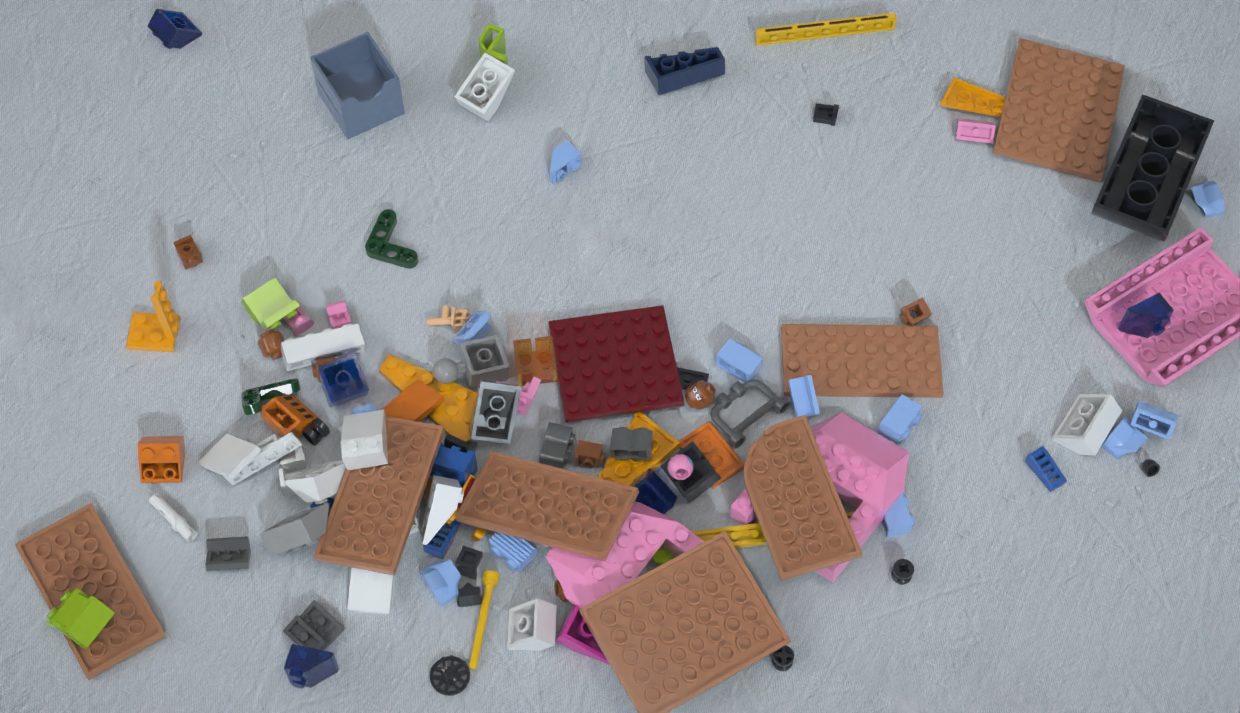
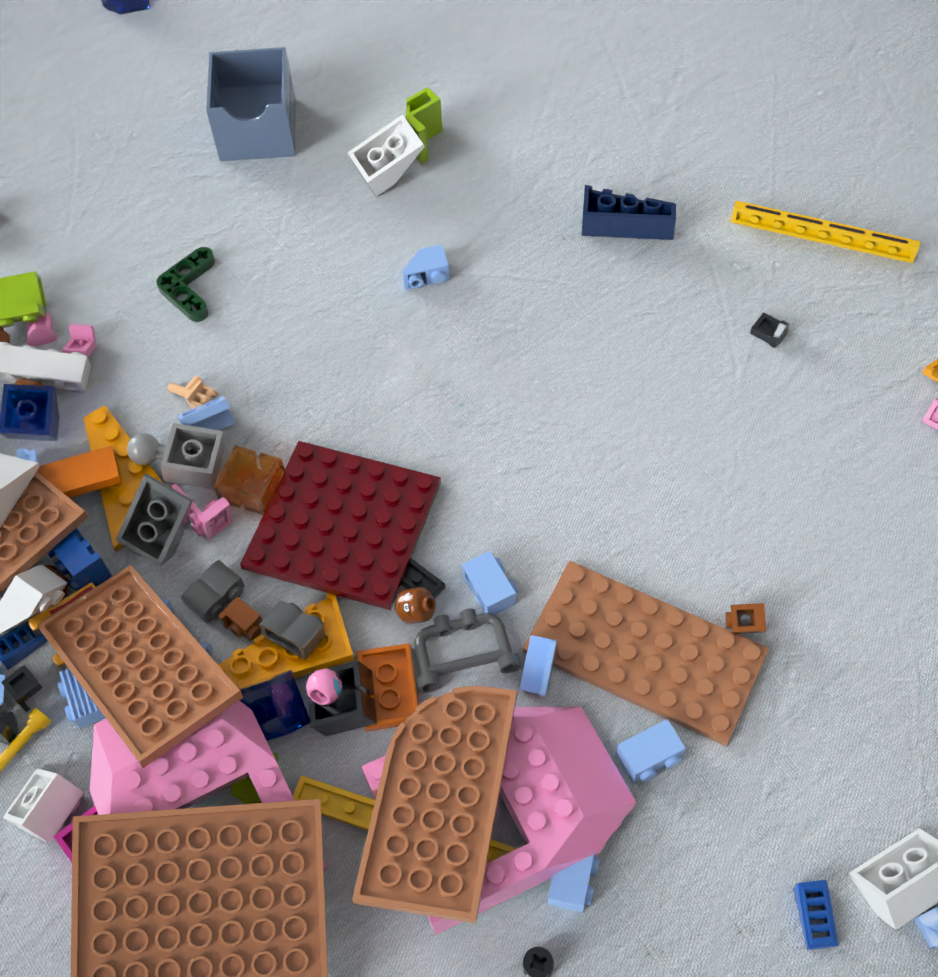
camera: 30 degrees right, 0 degrees up
(450, 441) = (106, 548): black tile -> none

